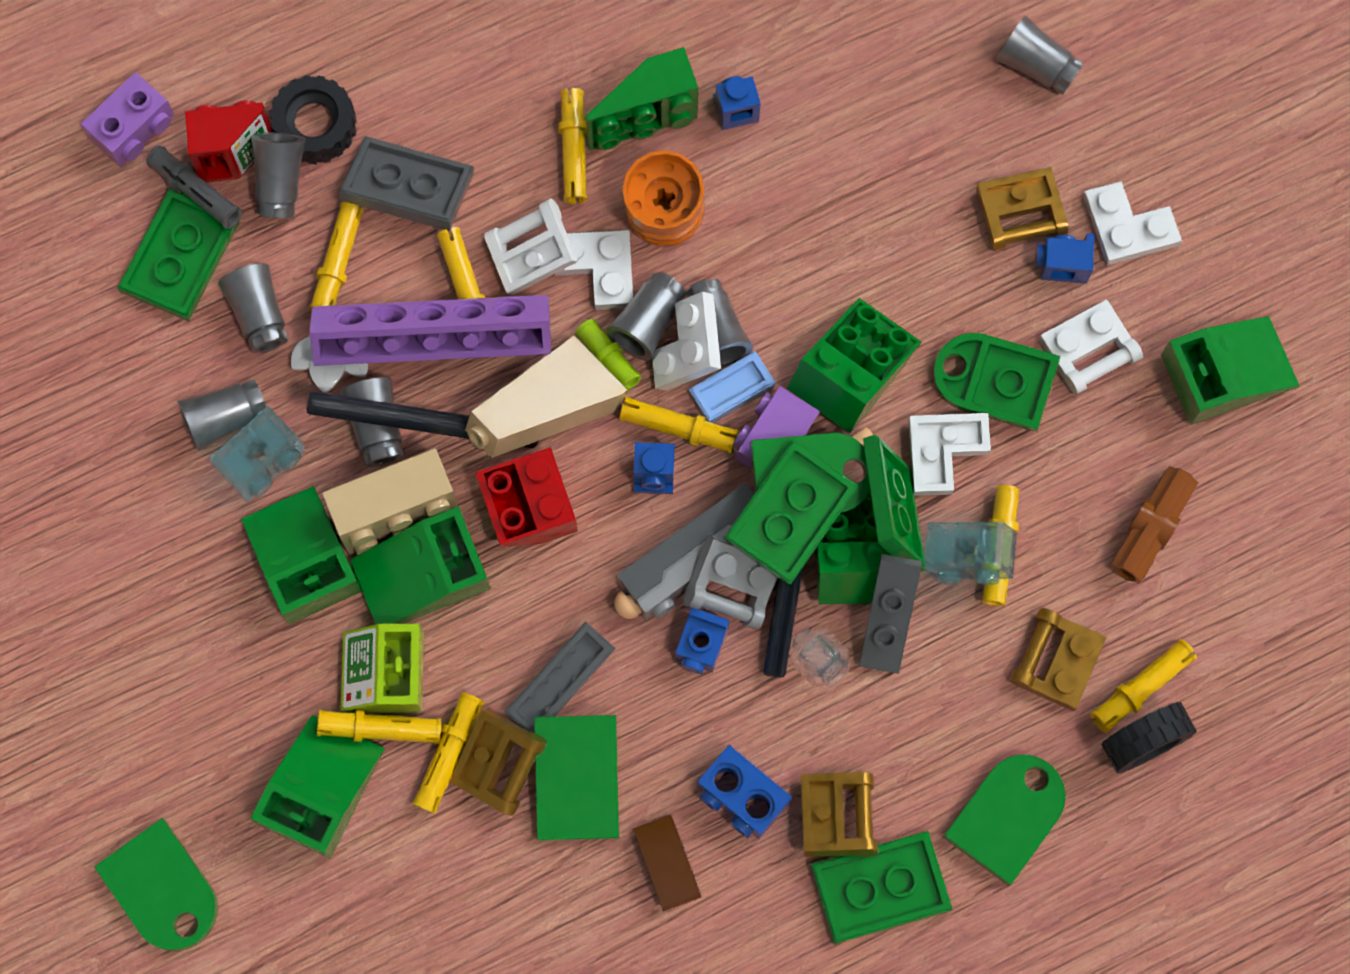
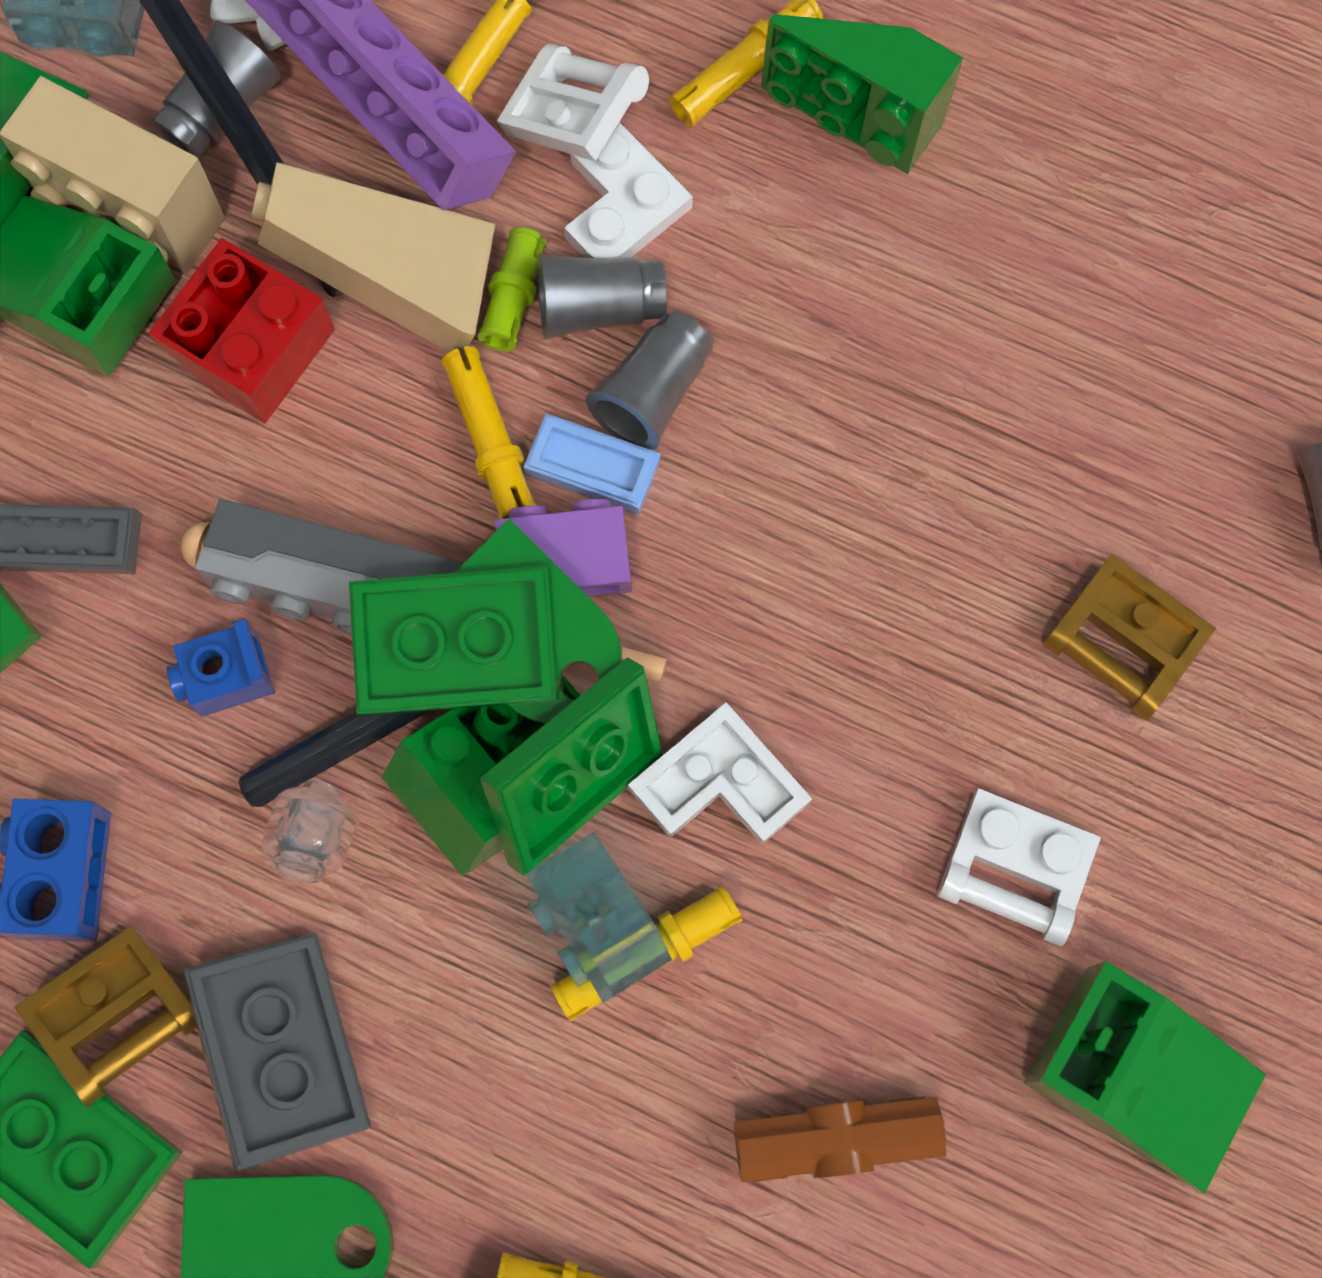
camera: 50 degrees right, 0 degrees up
(654, 468) = (405, 444): blue brick -> none
(670, 178) = (758, 194): orange wheel -> none
(697, 347) = (585, 375): white plate -> none
(732, 568) = (324, 621): light grey plate -> none
(737, 95) = (968, 181): blue brick -> none
(853, 365) = (739, 582): green slope -> none
(890, 613) = (426, 874): dark grey plate -> none
(915, 749) = (276, 1051): none -> dark grey tile
(999, 379) = (872, 780): green tile -> none
(1066, 258) = (1109, 740): blue brick -> none
(1070, 665) = (555, 1172): pearl gold plate -> none
(1125, 235) = (1211, 795): white plate -> none

